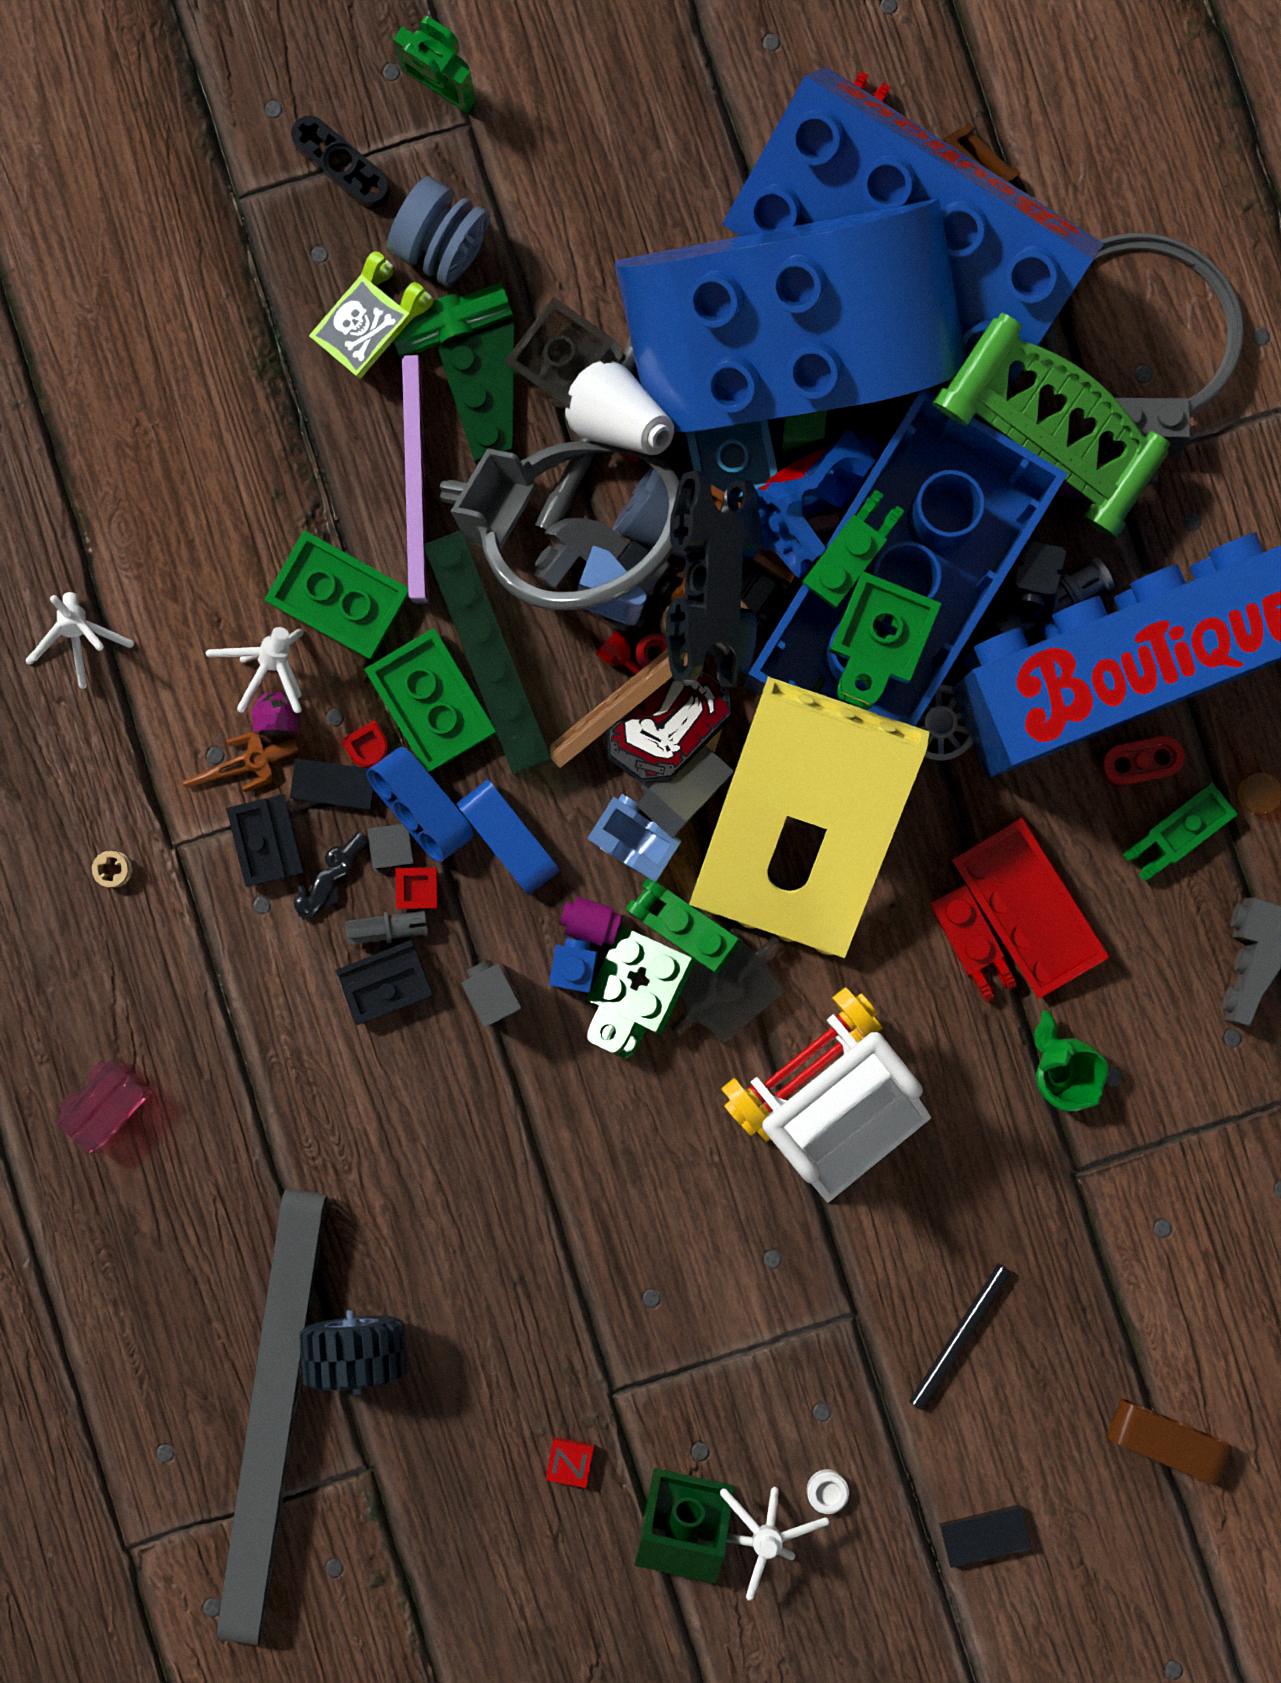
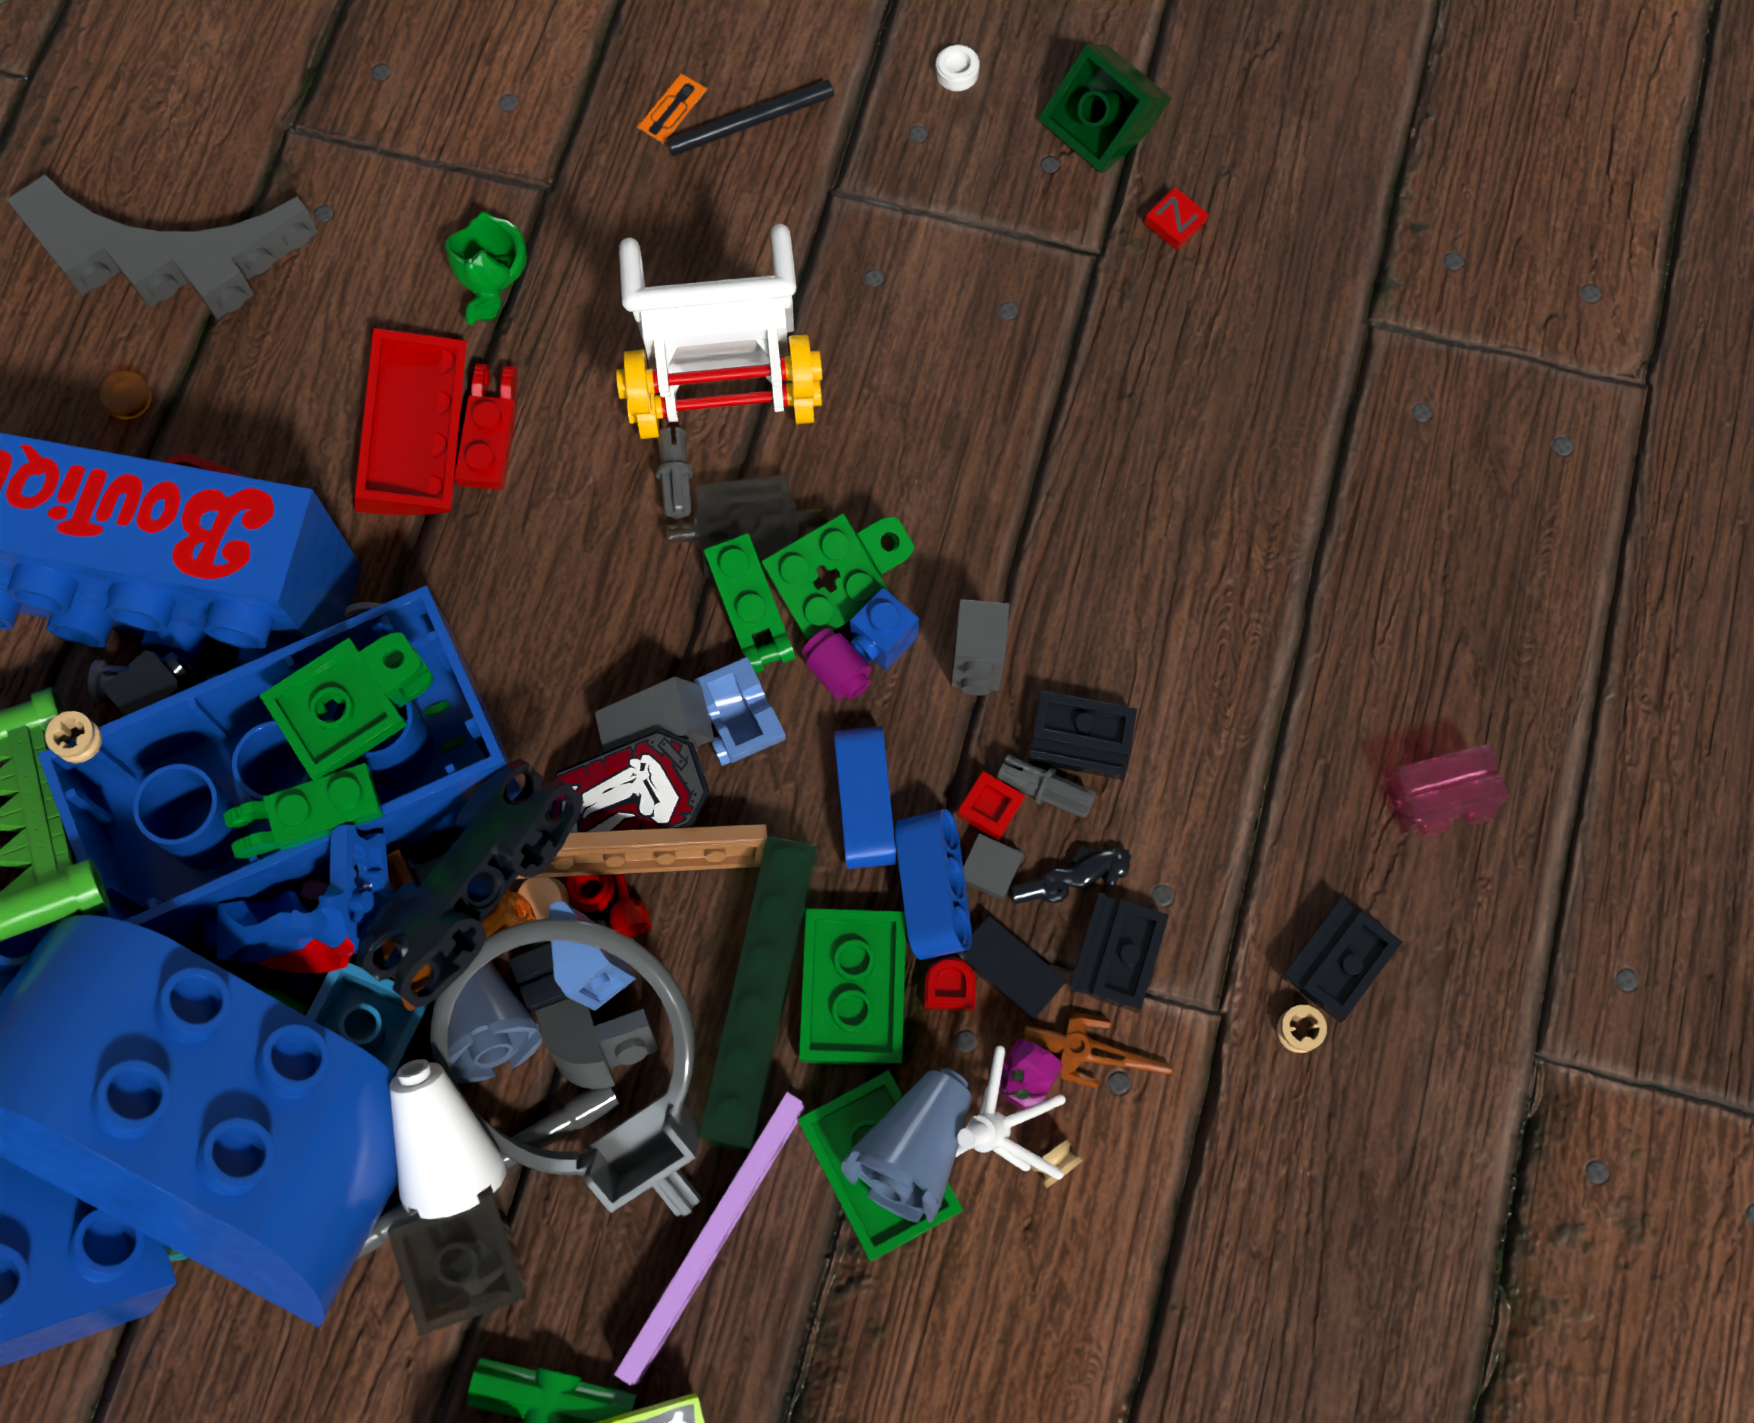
camera: 150 degrees left, 15 degrees down
(72, 624) = (1192, 1324): white plant -> none
(110, 933) = (1341, 960): none -> black plate
(221, 672) = (1061, 1158): none -> tan bush
(271, 1418) = (1432, 416): dark grey beam -> none
(315, 615) = (913, 1147): none -> sand blue cone
(353, 1352) = (1326, 404): black wheel -> none
(483, 388) = (571, 1297): dark green wing -> none
(766, 1538) = (1037, 42): white plant -> none
(806, 991) = (674, 473): none -> dark grey axle
(824, 768) = (507, 635): light yellow panel -> none
(1030, 1307) = (672, 108): none -> orange sticker
(1035, 497) = (60, 730): none -> tan bush
(1183, 829) = (222, 403): green hinge -> none

